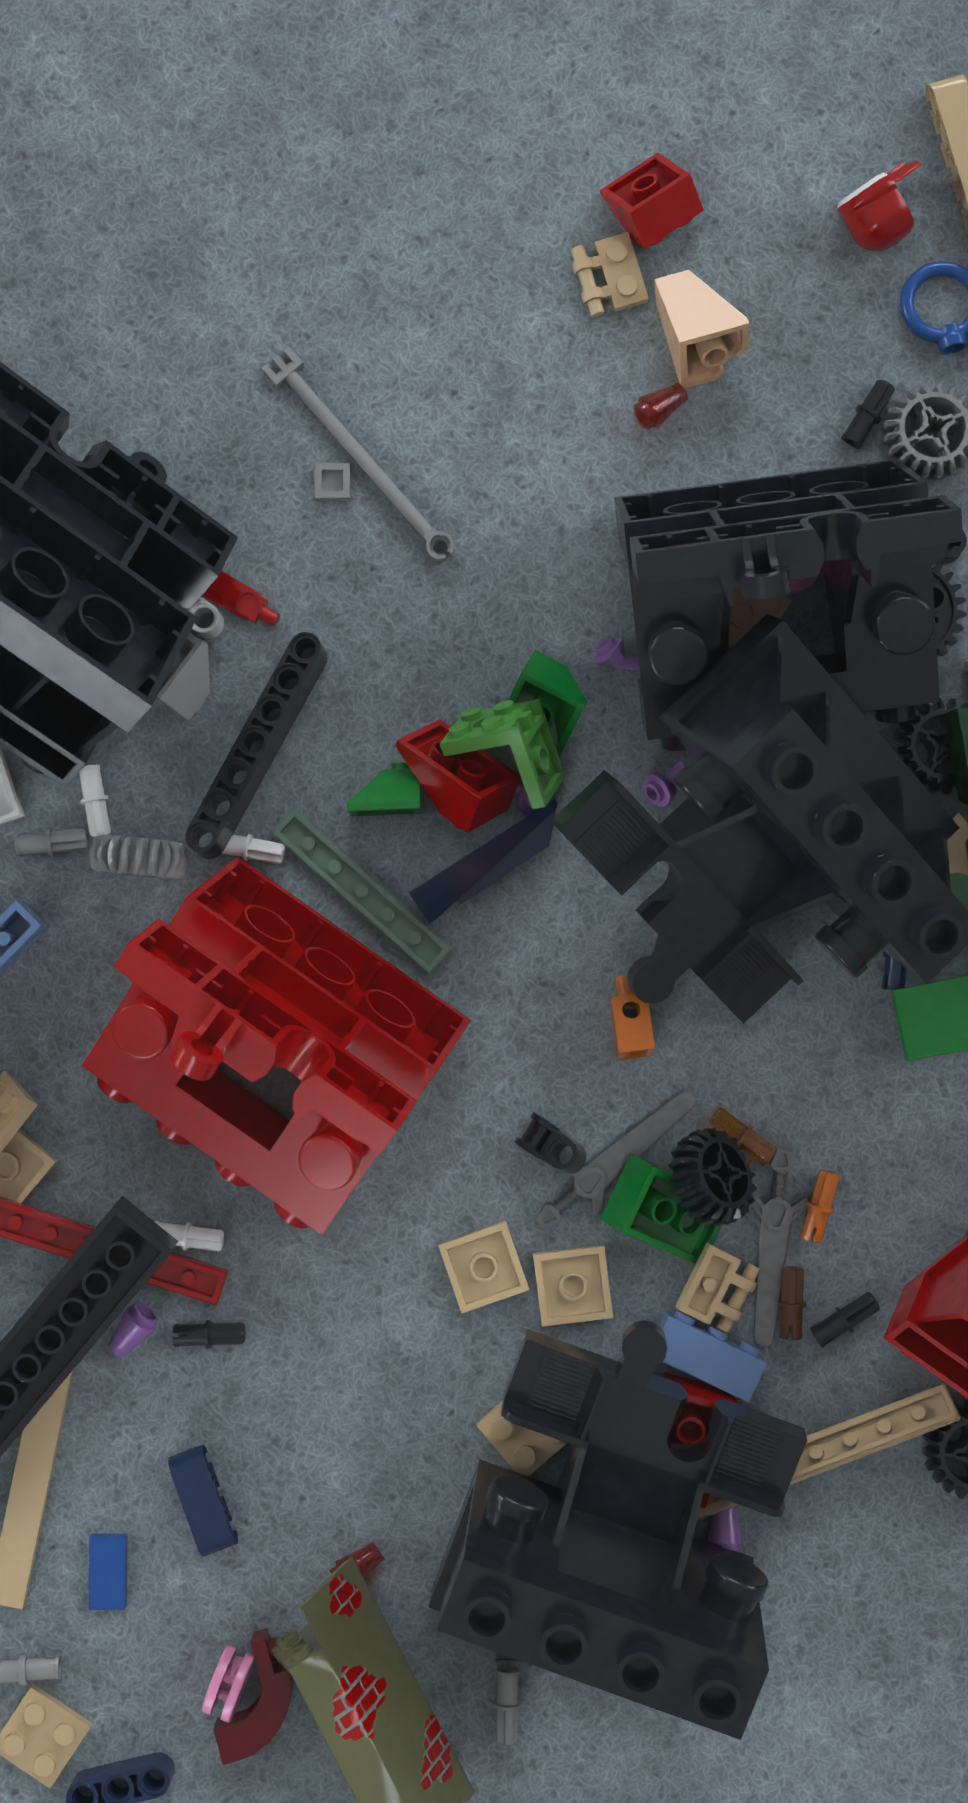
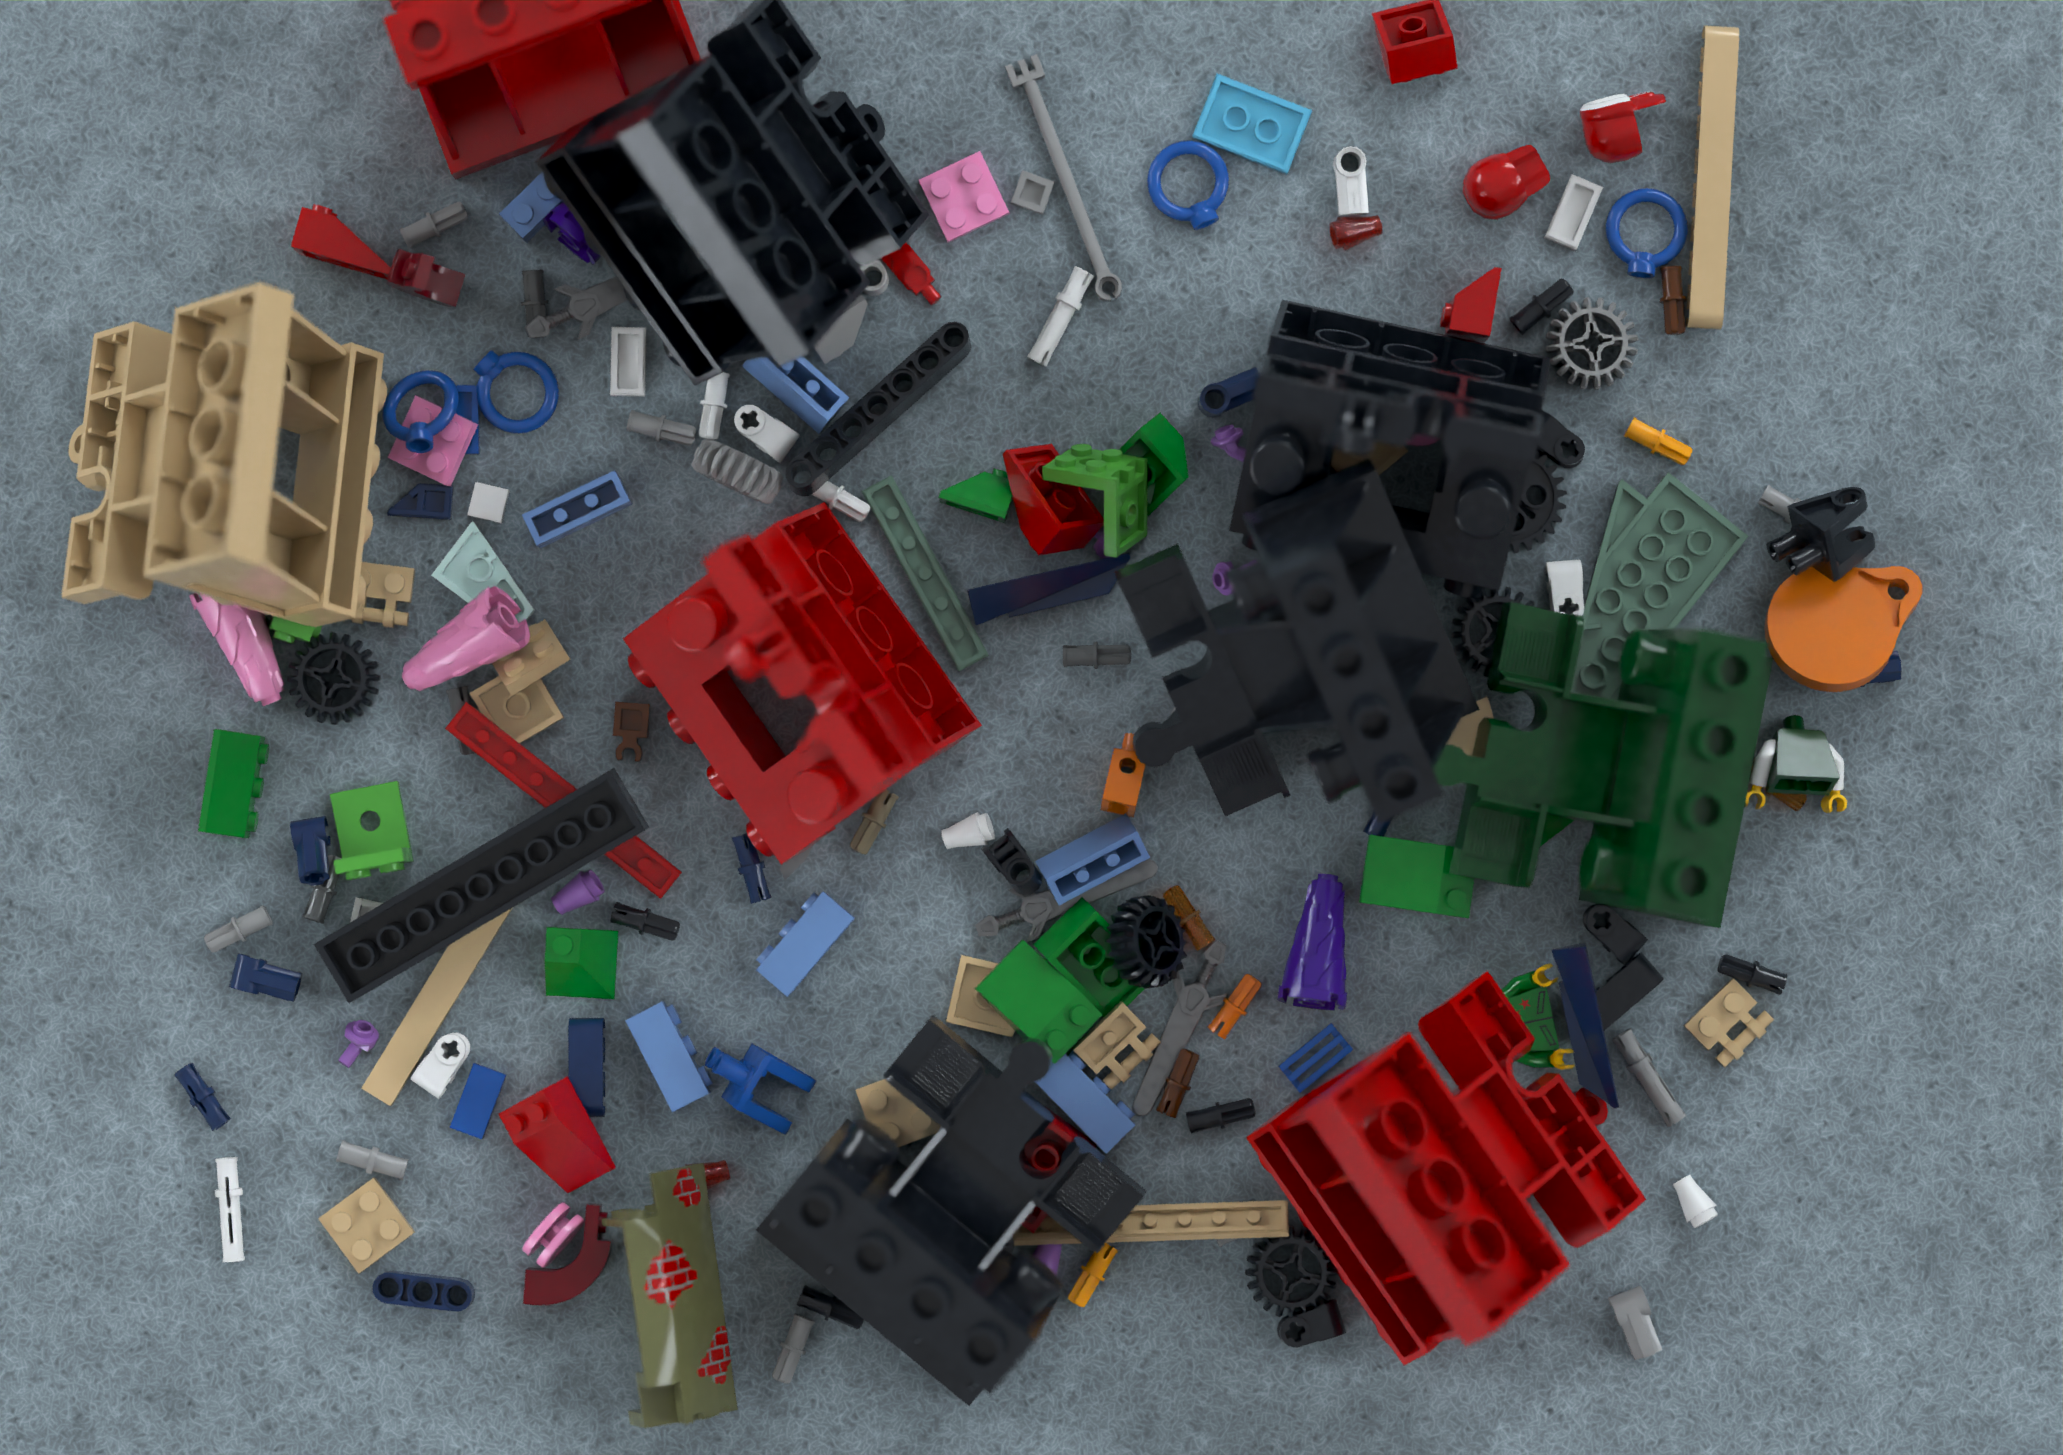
camera: 25 degrees right, 0 degrees up
(58, 1551) = (440, 1069): none -> white piece
(125, 1143) = (631, 723): none -> reddish brown plate
(159, 808) = (770, 435): none -> white piece
(159, 1396) = (581, 962): none -> green slope
(169, 751) = (800, 389): none -> medium blue brick
(194, 1237) = (665, 830): white axle -> none
(196, 1581) = (558, 1136): none -> red slope
(266, 509) = (963, 196): none -> bright pink plate
(280, 1459) = (669, 1055): none -> medium blue brick
(296, 1244) = (751, 868): none -> dark blue pin
(361, 1454) = (744, 1076): none -> blue piece
(373, 1299) = (804, 942): none -> medium blue brick
(398, 1156) = (873, 822): none -> dark tan axle
(403, 591) = (1057, 322): none -> white pin
(483, 1266) = (913, 950): tan plate -> none
(497, 1129) = (971, 831): none -> white cone
(505, 441) = (1202, 213): none -> blue piece
(522, 338) = (1252, 124): none -> medium azure tile
(558, 910) = (1096, 655): none -> dark grey axle
(599, 604) = (1234, 391): none -> dark blue piece
(620, 272) = (1363, 94): tan plate -> none
(626, 1275) = (1038, 1000): none -> green slope
(628, 1113) = (1092, 859): none -> medium blue brick
(640, 361) = (1351, 185): none -> white piece
(699, 327) = (1414, 173): light nougat slope -> none
(775, 1532) = (1091, 1275): none -> light orange axle
(787, 306) = (1504, 182): none -> red piece
(808, 437) = (1472, 309): none -> red slope
(865, 312) = (1573, 212): none -> white tile
(885, 1131) = (1316, 961): none -> dark purple cone
(928, 1236) = (1338, 1039): none -> blue tile

